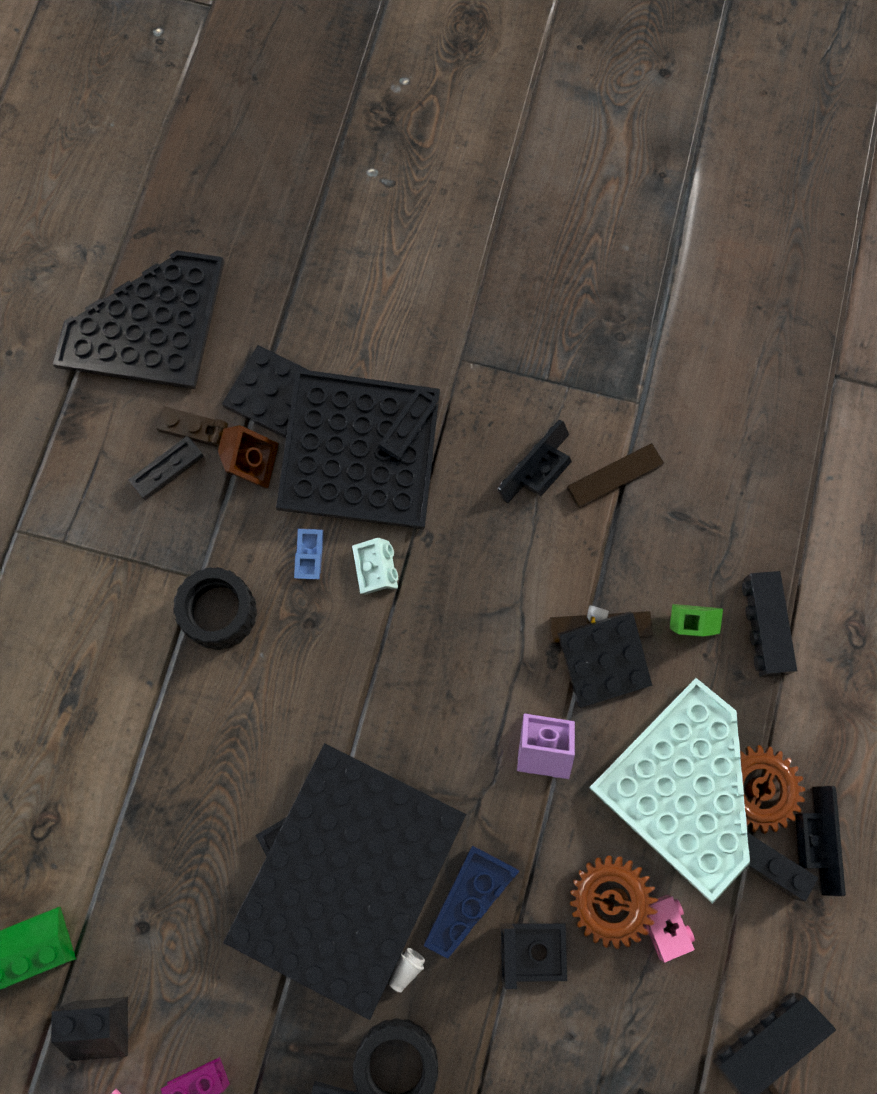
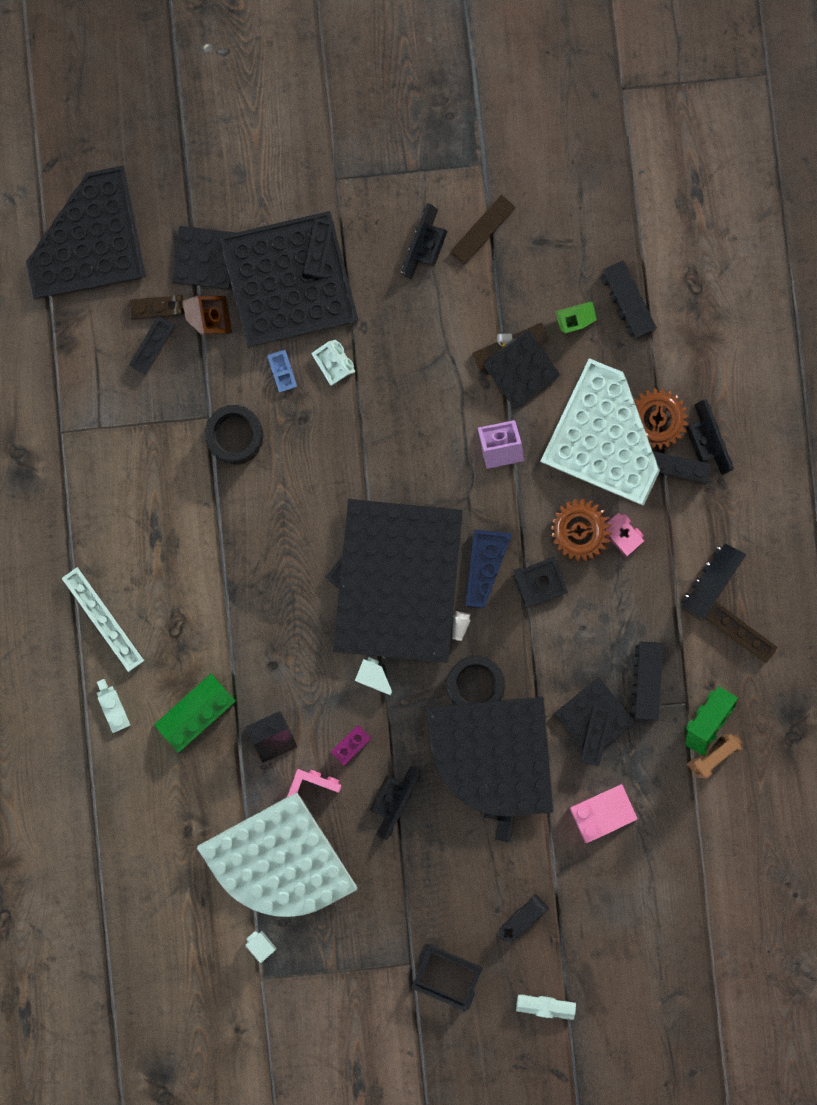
camera: 25 degrees left, 10 degrees up
(264, 998) = (373, 676): none -> light aqua slope

